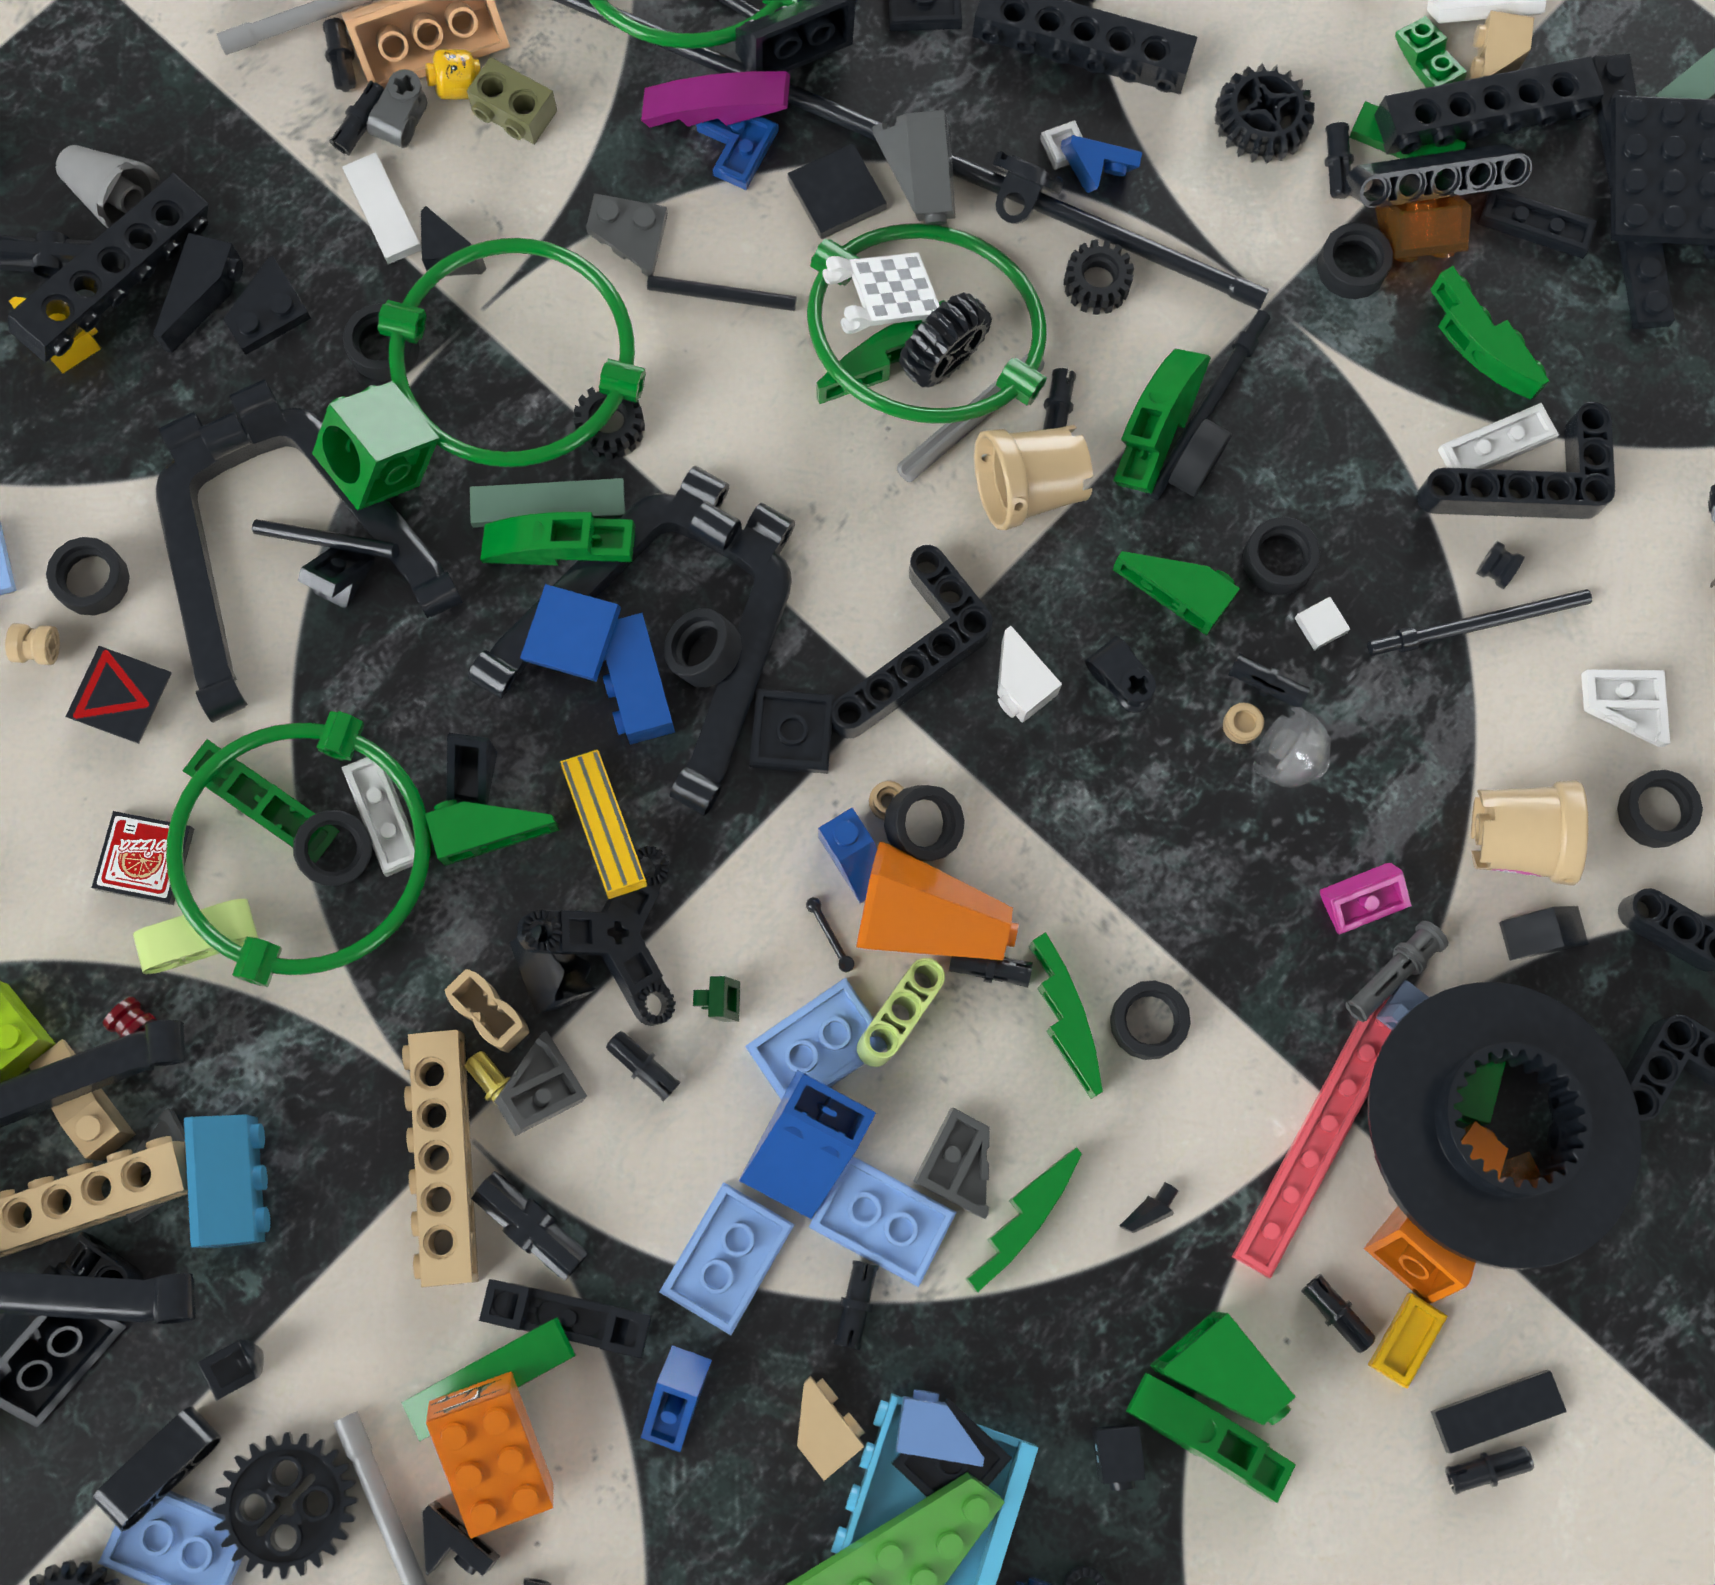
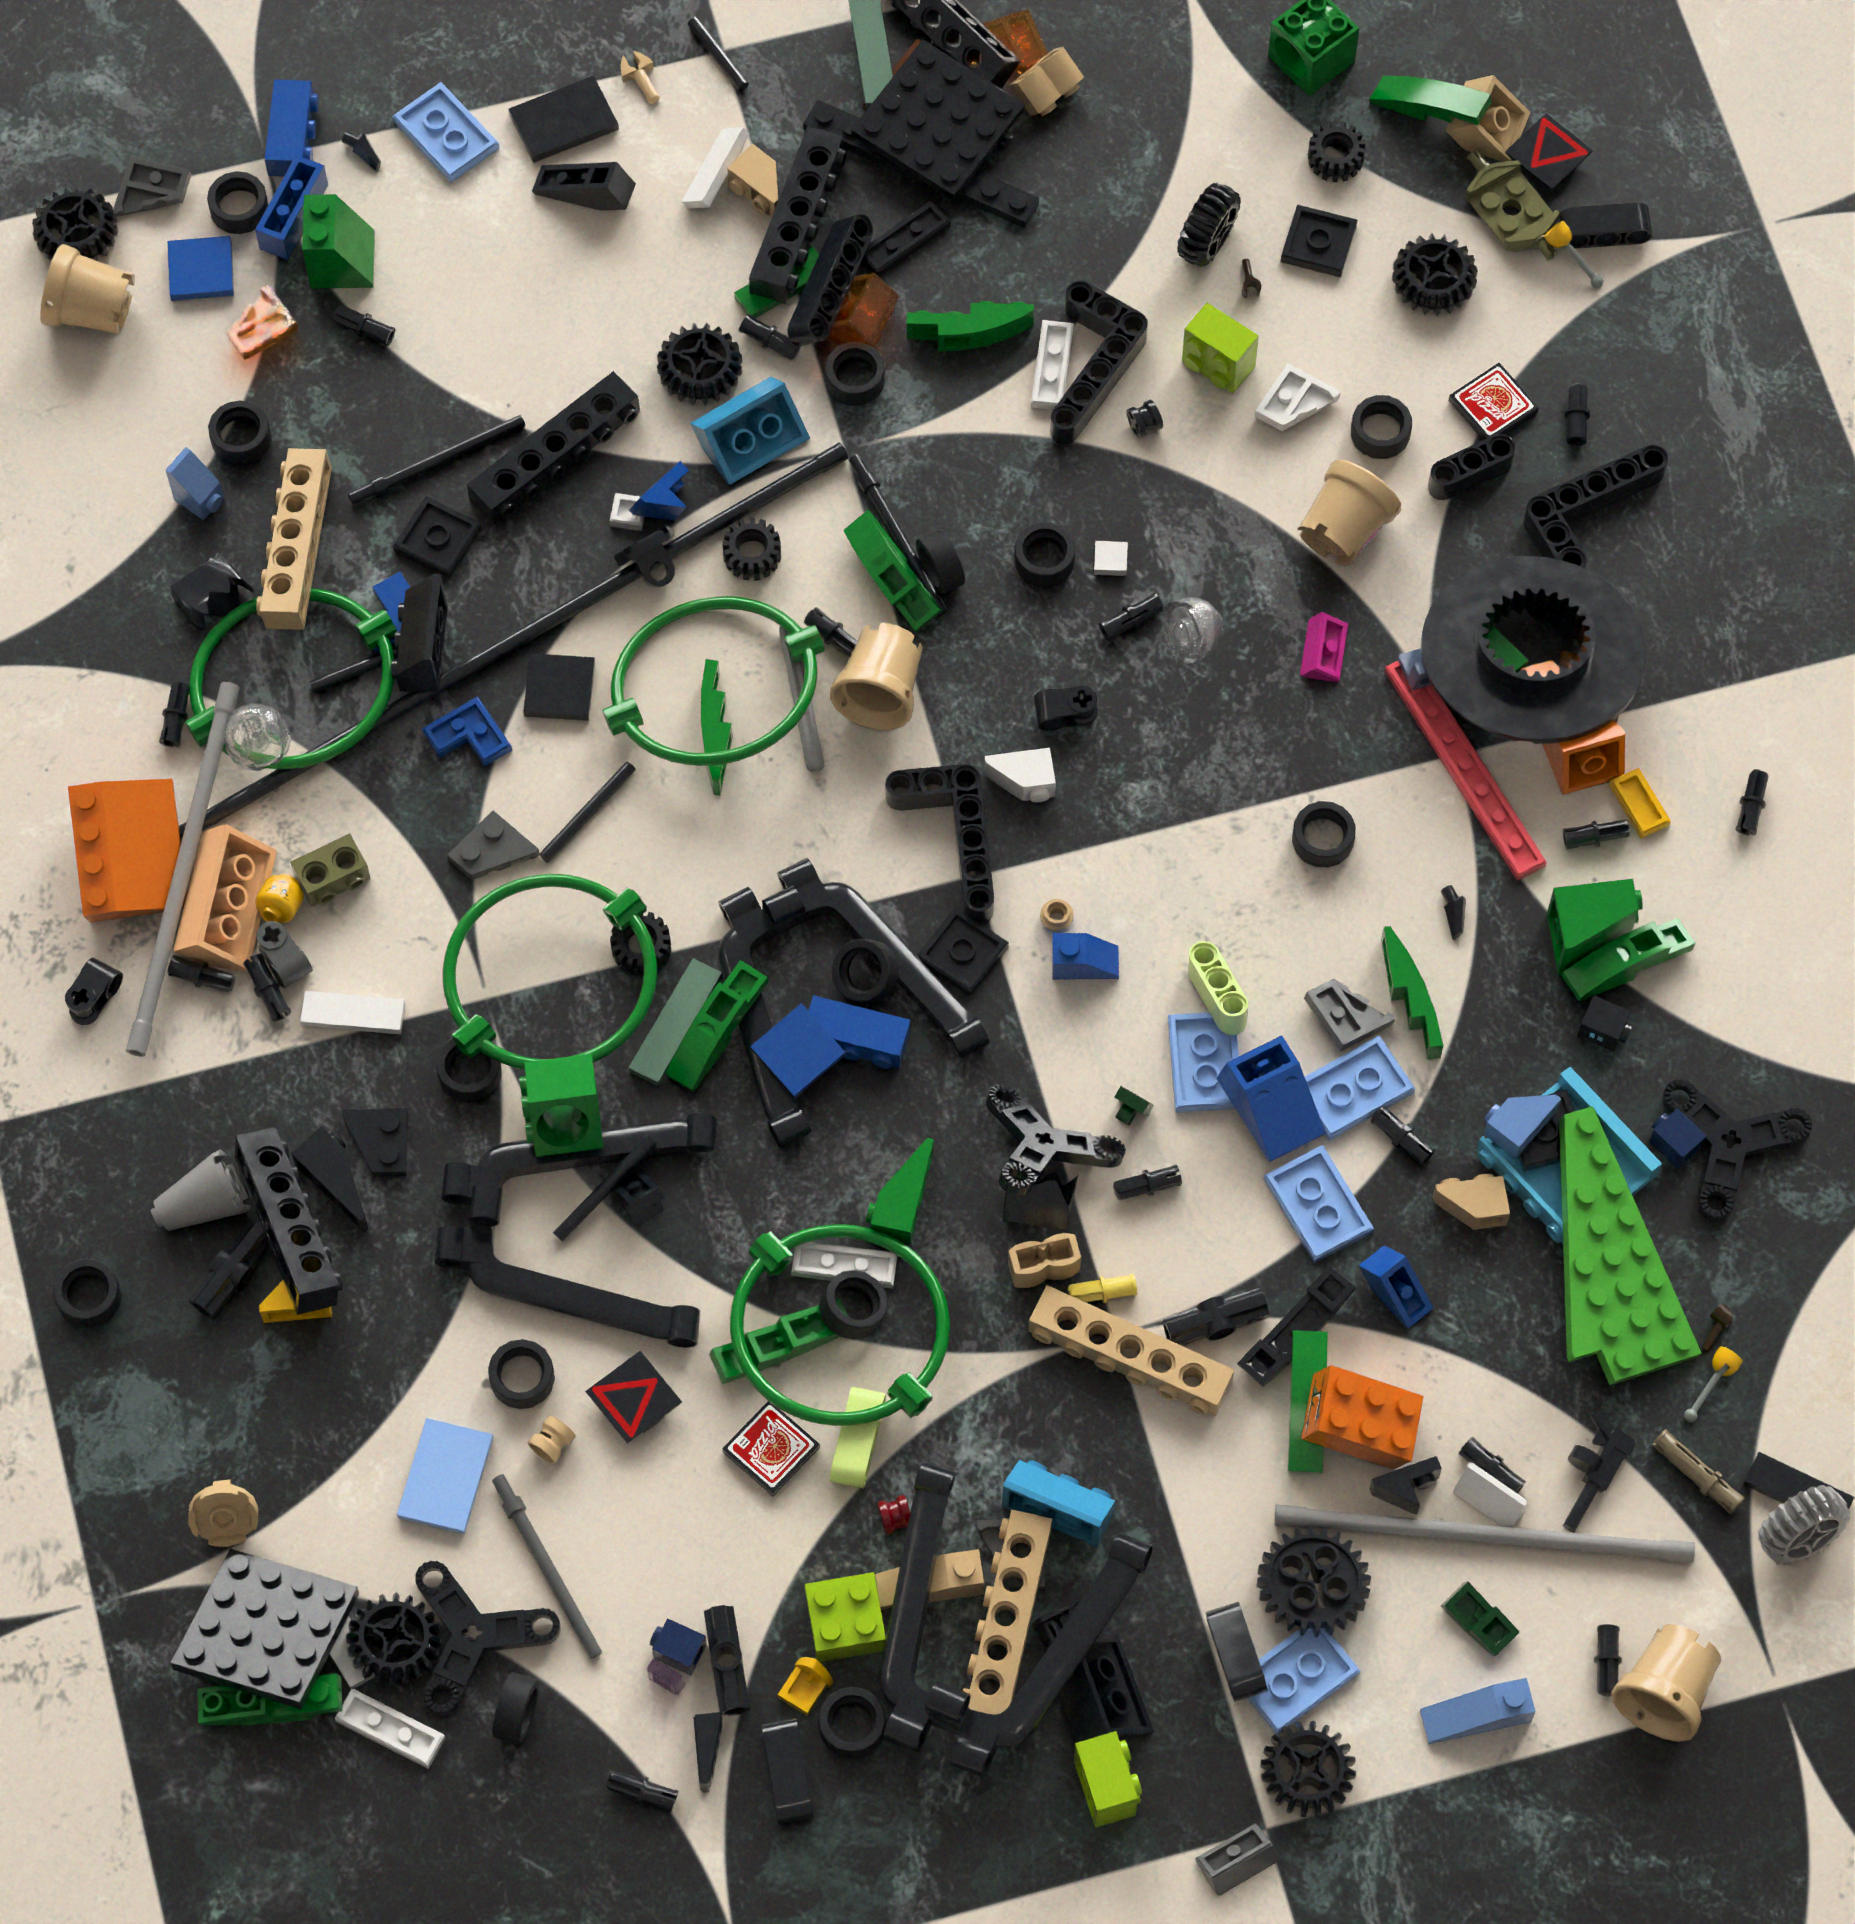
camera: 55 degrees left, 10 degrees down
(232, 1367) = (1194, 1568): black plate -> none
(440, 241) = (418, 982): black slope -> none
(469, 768) = (851, 1181): black slope -> none
(539, 1088) = (1119, 1256): dark grey wing -> none
(603, 824) = (954, 1109): yellow tile -> none
(714, 96) = (433, 723): magenta slope -> none
(845, 963) = (1156, 1011): black hinge -> none
(889, 289) = (675, 687): white flag -> none
(922, 162) = (589, 613): dark grey slope -> none
(930, 912) = (1157, 929): orange slope -> none
(945, 340) = (740, 675): black gear -> none
(952, 822) = (1102, 881): black tyre -> none
(1005, 970) = (1221, 915): black pin -> none
(1072, 1030) = (1300, 887): green slope -> none
(1185, 588) = (1030, 629): green slope -> none
(1225, 201) = (750, 429): none -> dark azure slope
(1243, 723) = (1150, 652): tan tile -> none
(1407, 959) = (1385, 645): dark grey pin -> none
(1410, 639) = (1159, 508): black bar -> none
(1426, 53) = (721, 229): green slope -> none
(1498, 1411) = (1719, 775): black tile -> none
(1543, 932) = (1419, 552): black slope -> none
(1630, 590) = (1219, 348): none -> lime brick

